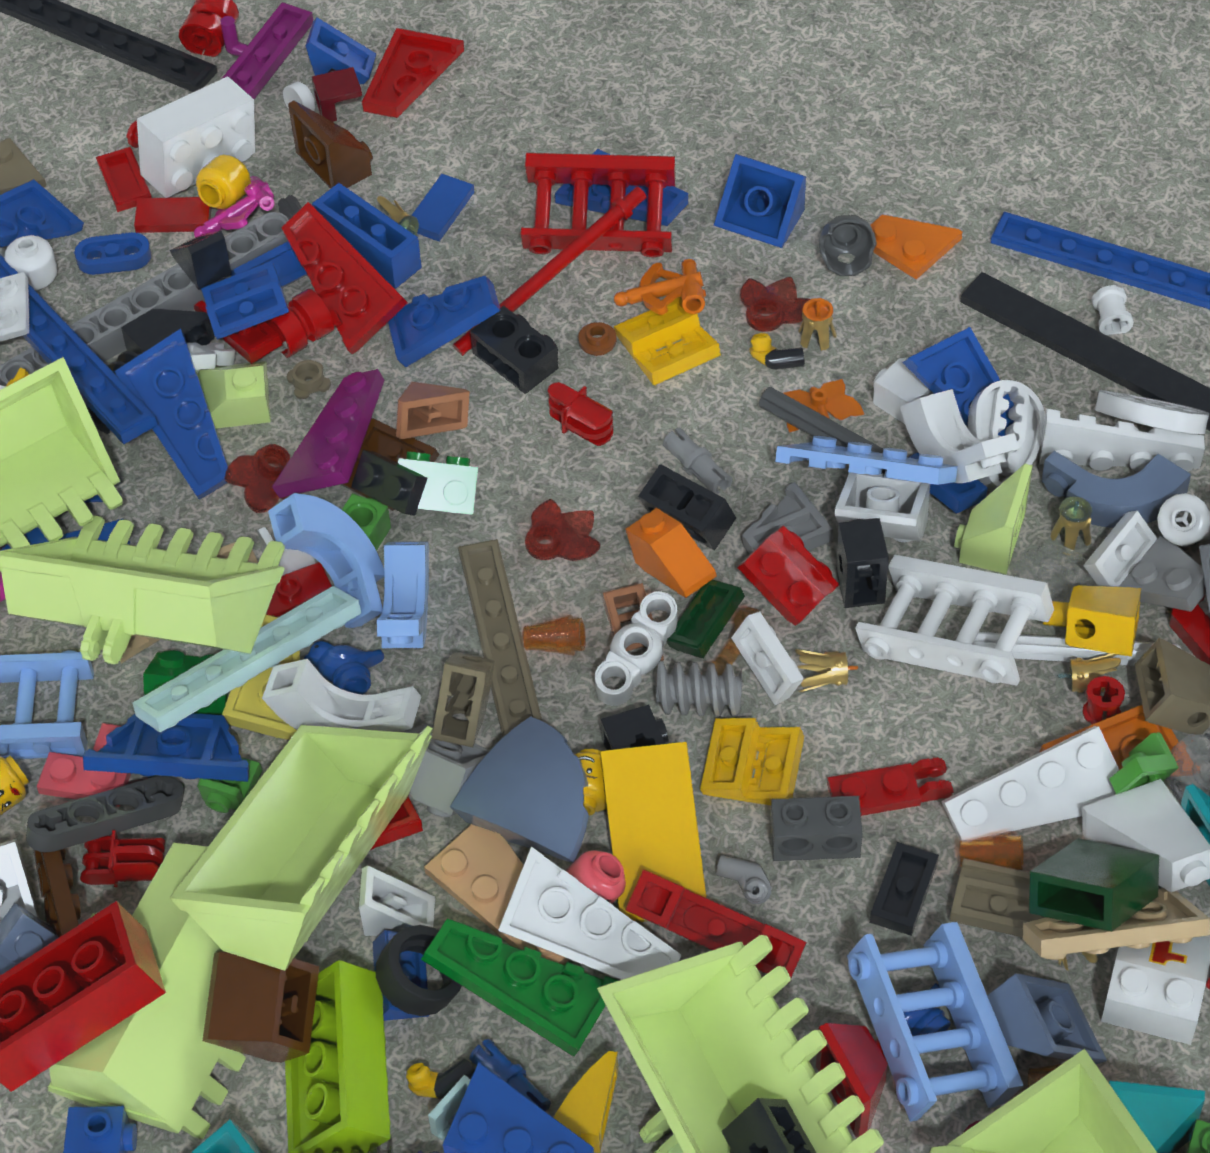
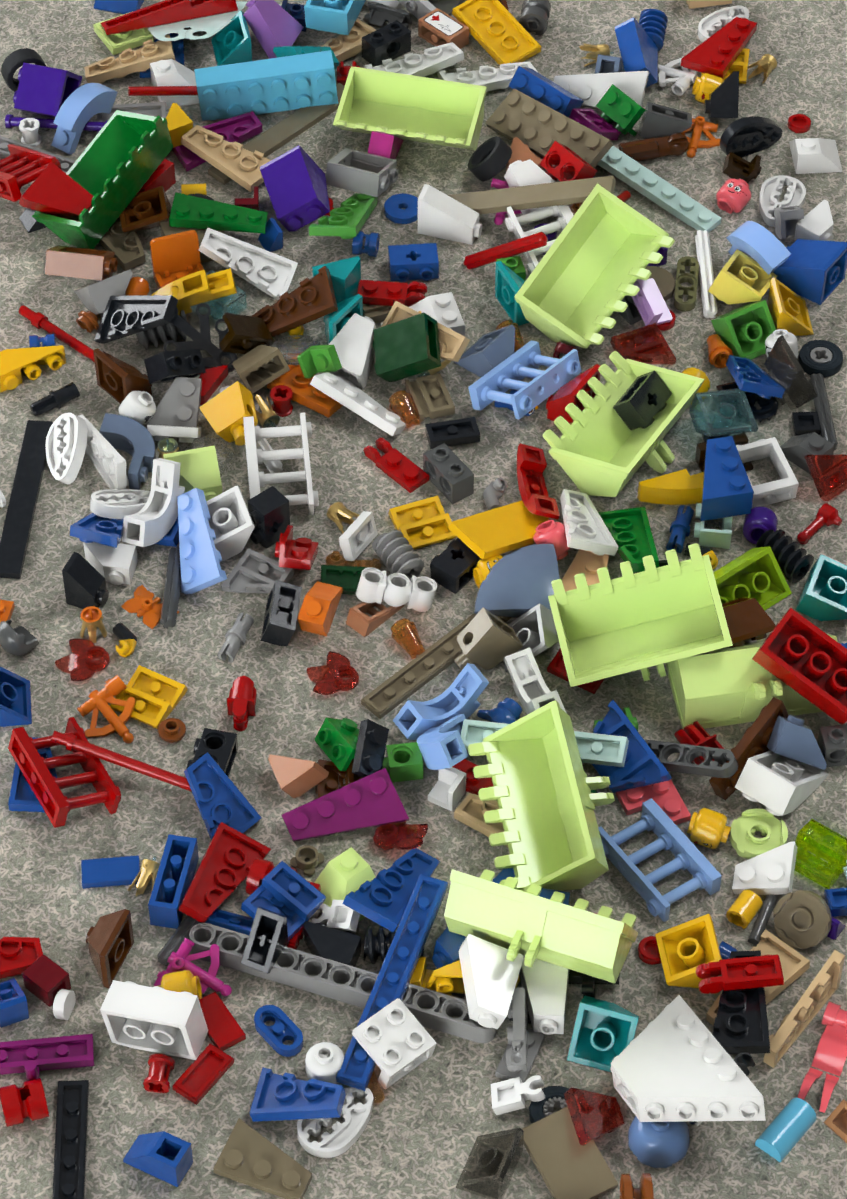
camera: 125 degrees left, 5 degrees down
(52, 95) = (161, 1156): none -> blue slope
(882, 330) = (83, 583): none -> black slope

